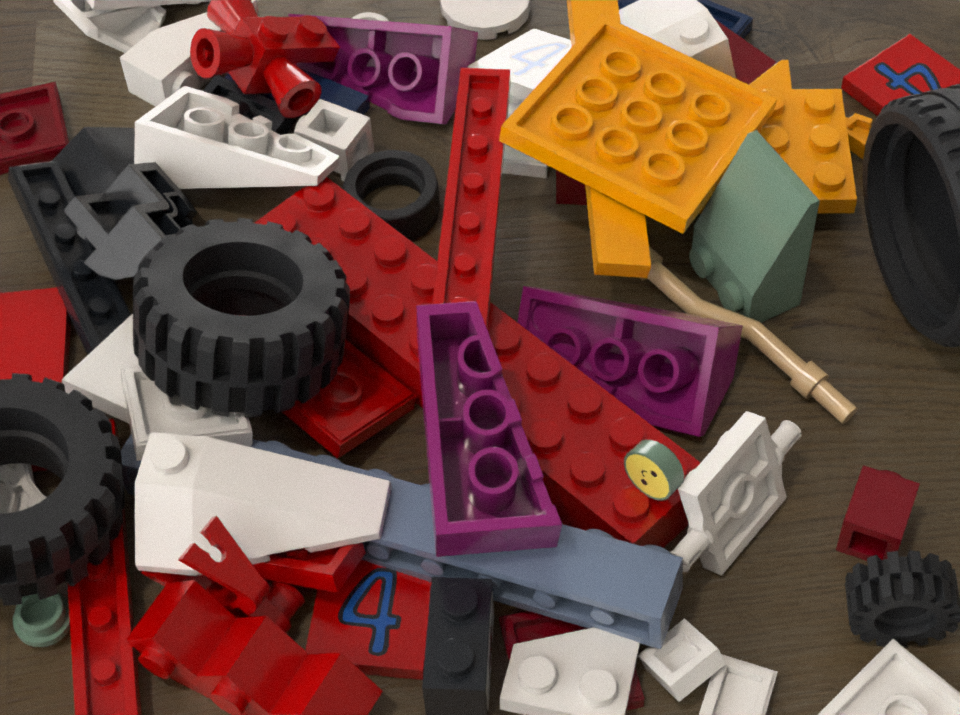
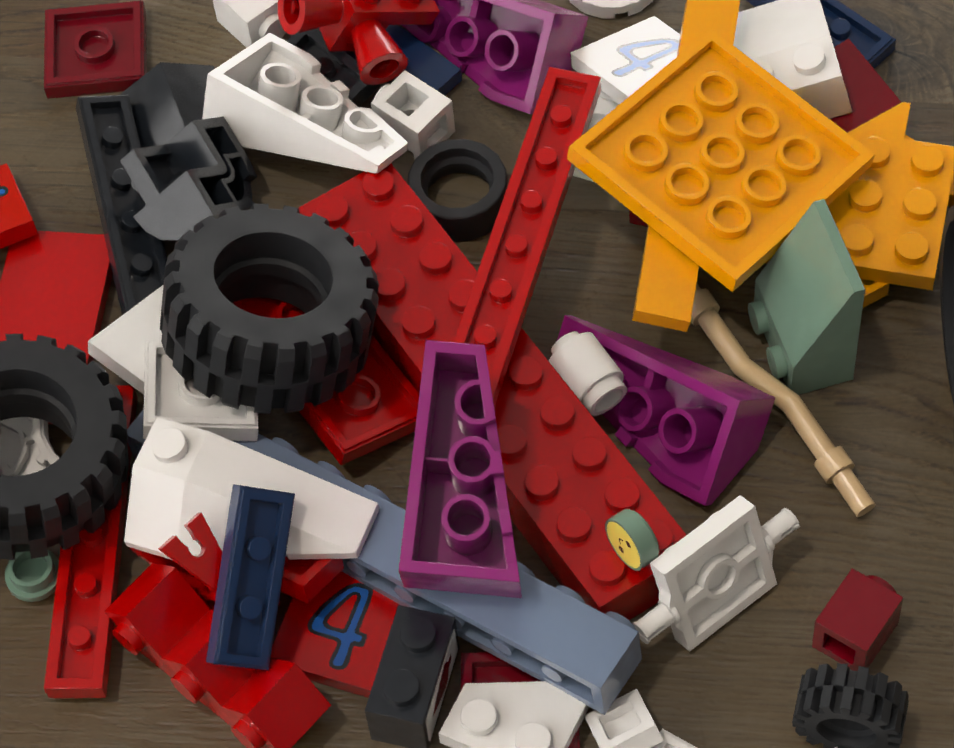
camera: 15 degrees right, 5 degrees up
(277, 574) = (250, 577): none -> dark blue tile
(561, 328) = (588, 371): none -> white brick

